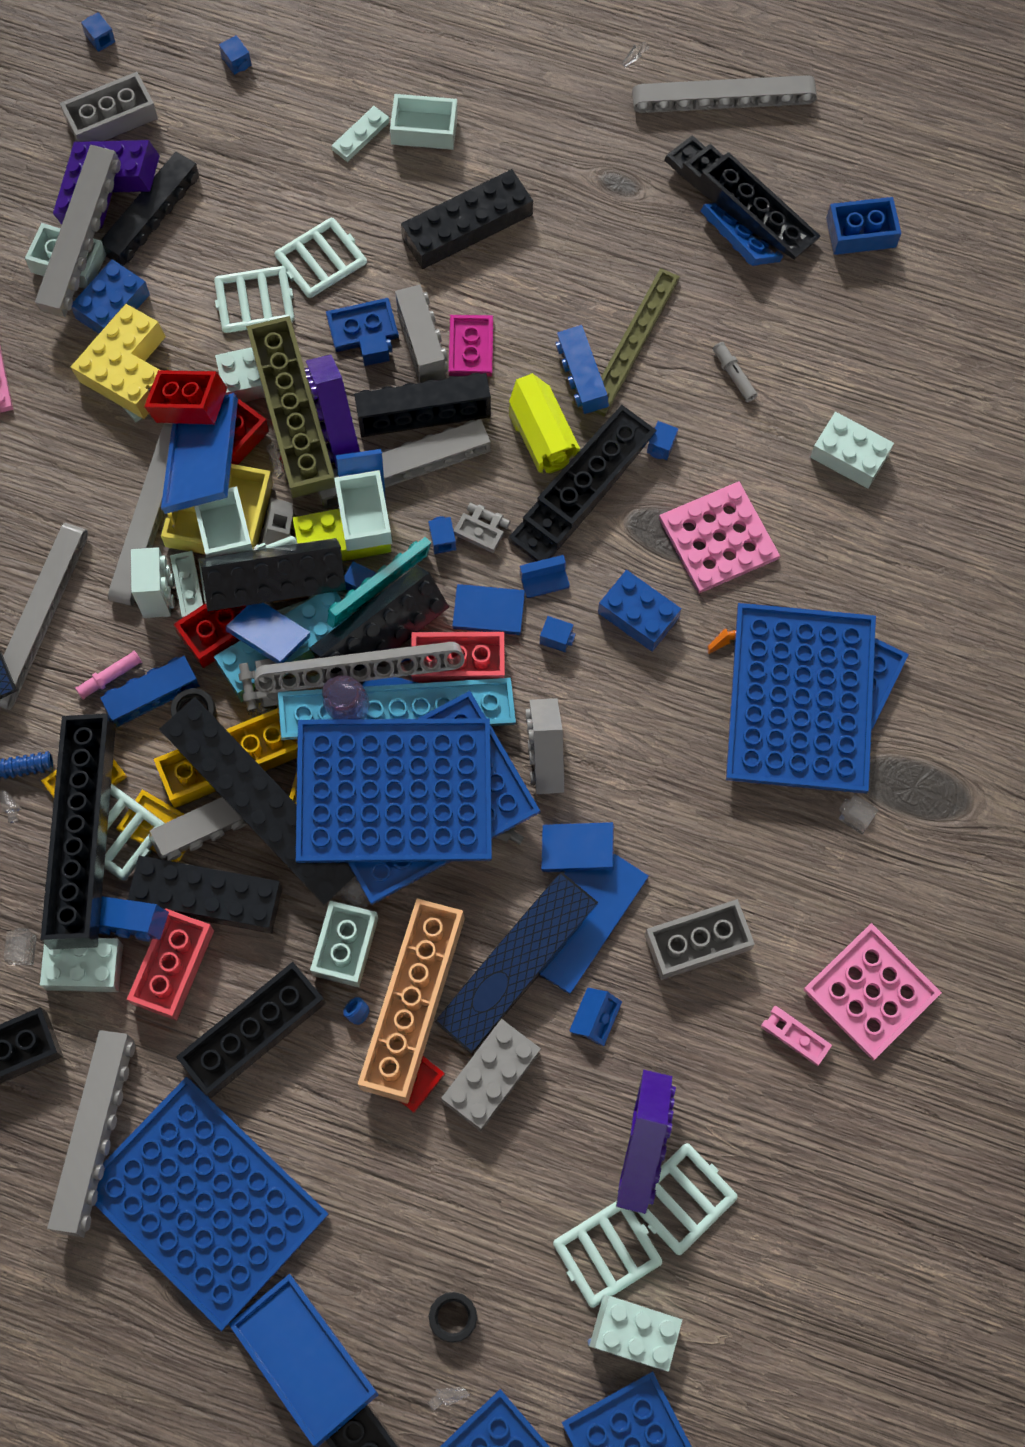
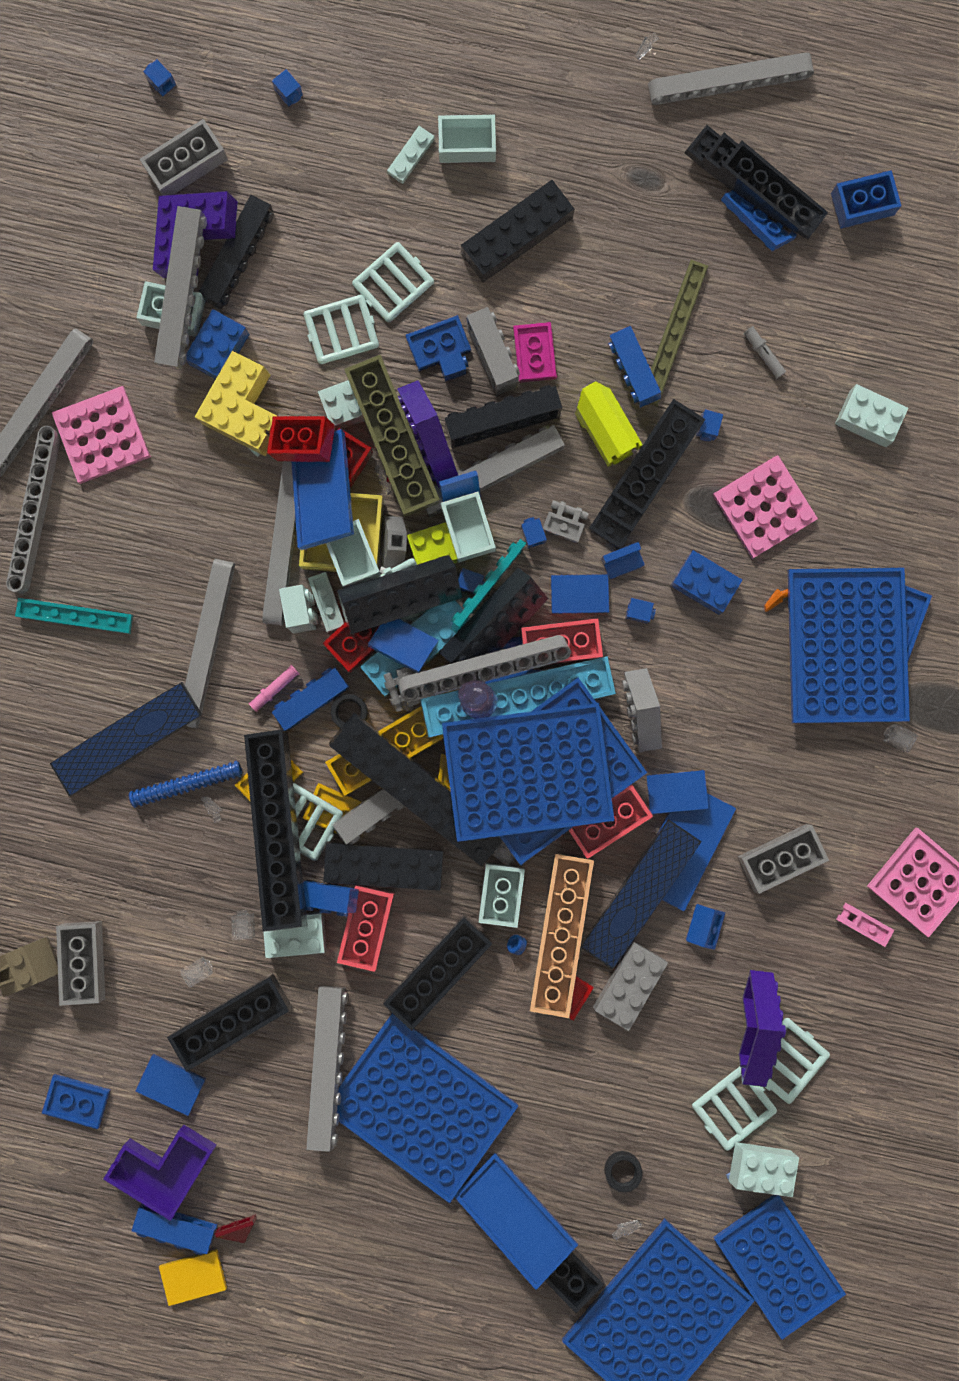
camera: 10 degrees left, 15 degrees up
(478, 880) = (628, 814): none -> coral brick

